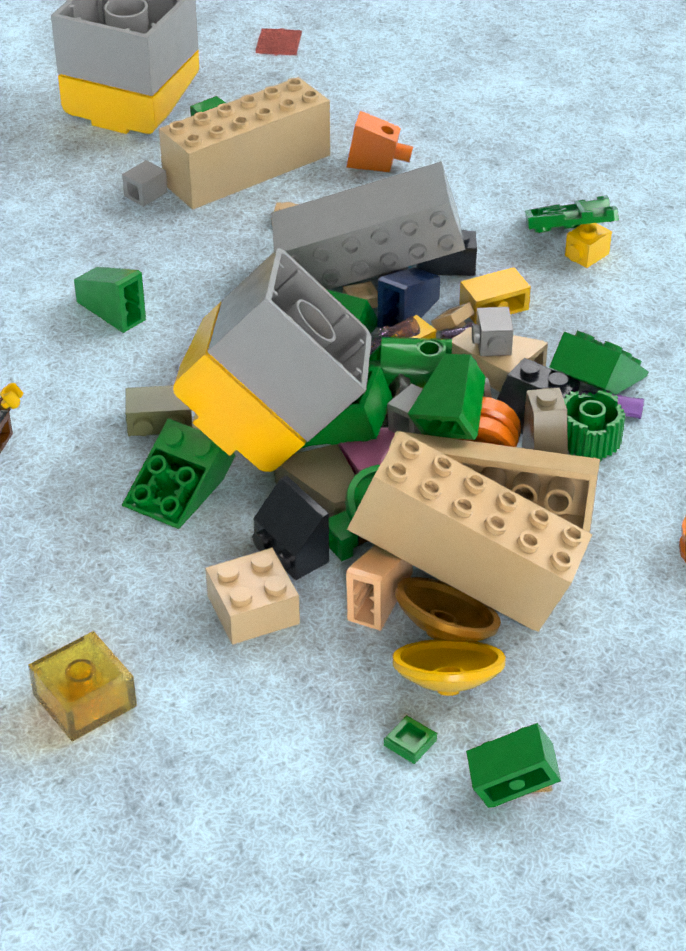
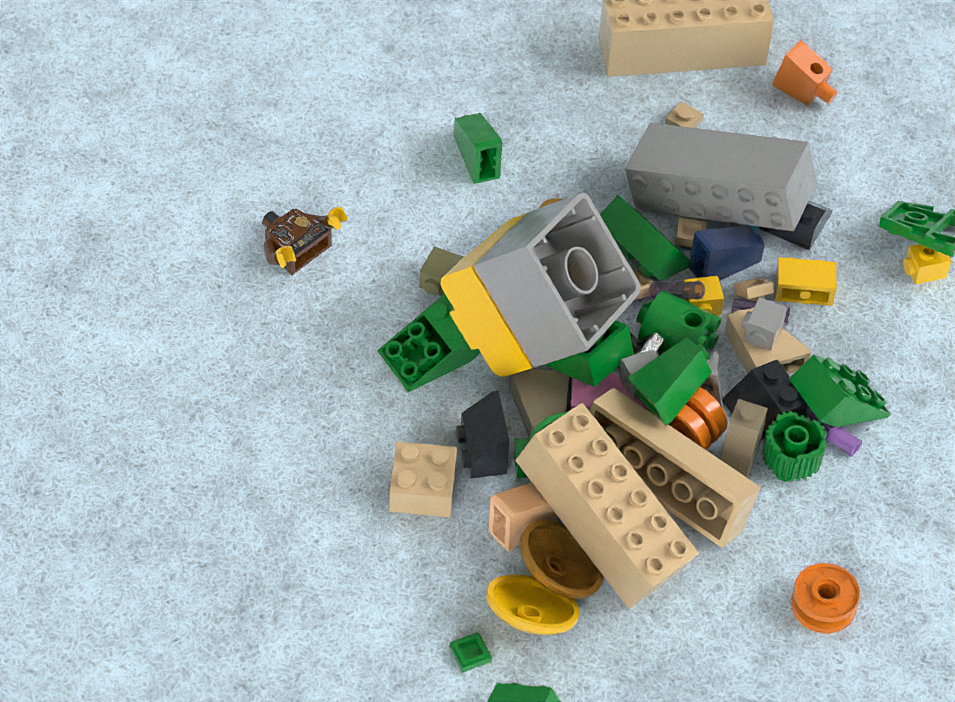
camera: 25 degrees right, 10 degrees up
(82, 685) = (253, 498): clear yellow brick -> none
(144, 183) = (578, 34): light grey brick -> none

